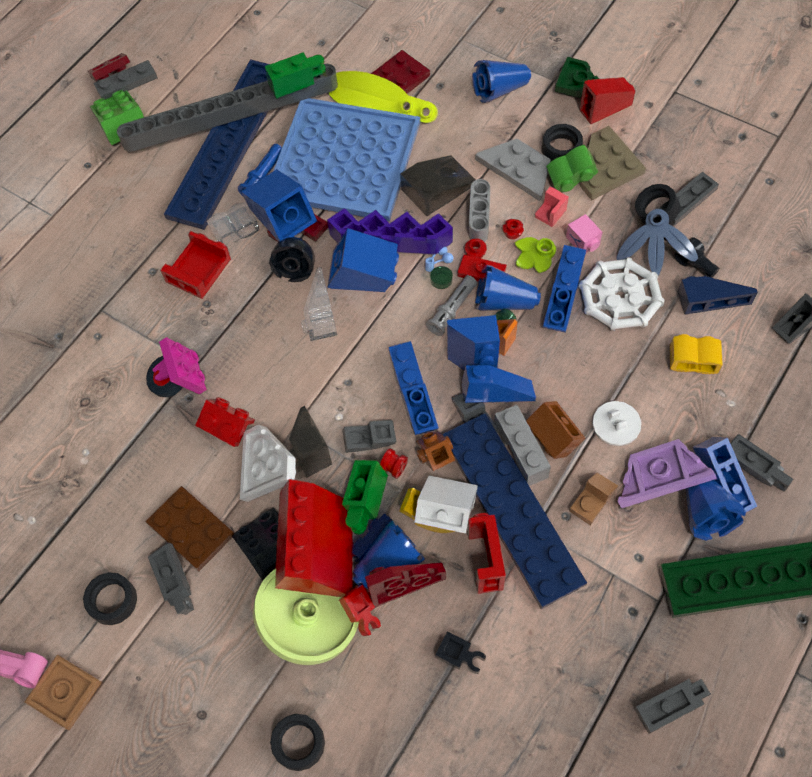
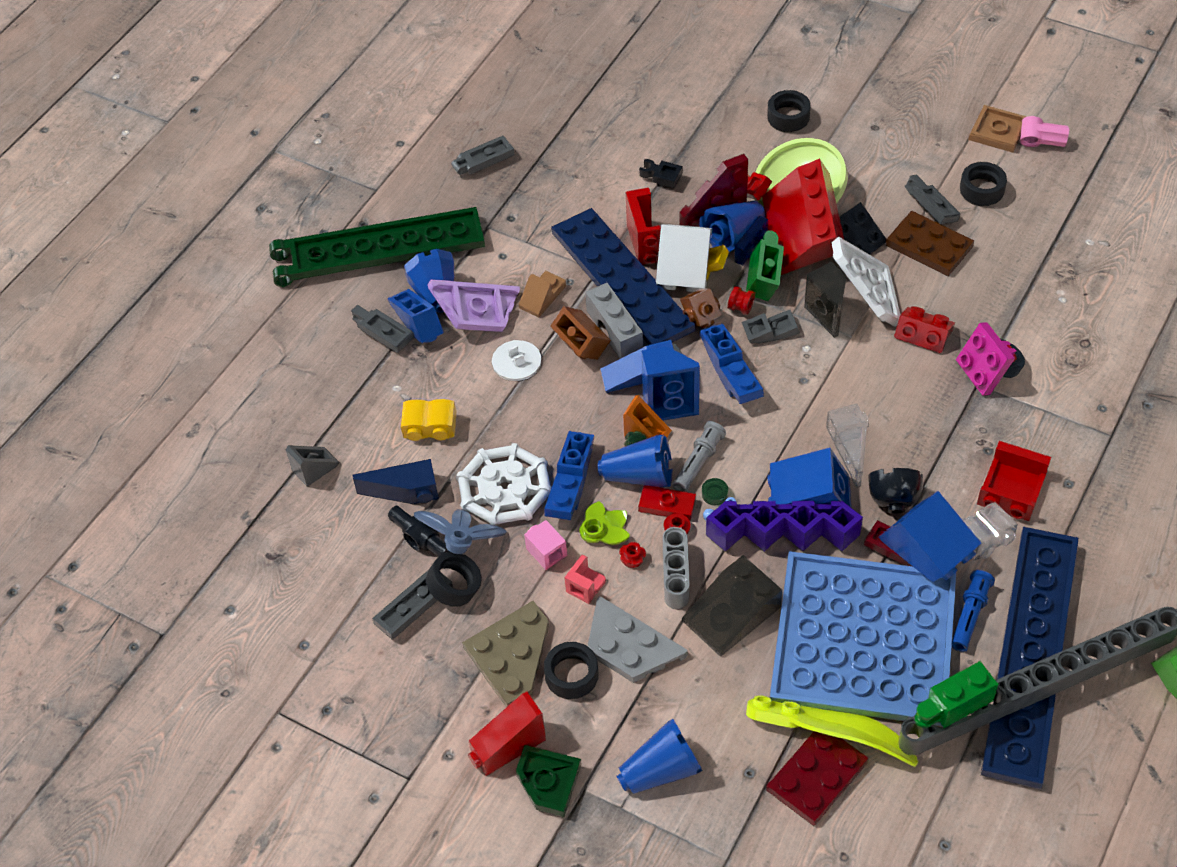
camera: 175 degrees right, 10 degrees down
(572, 169) = (558, 622): bright green brick -> none

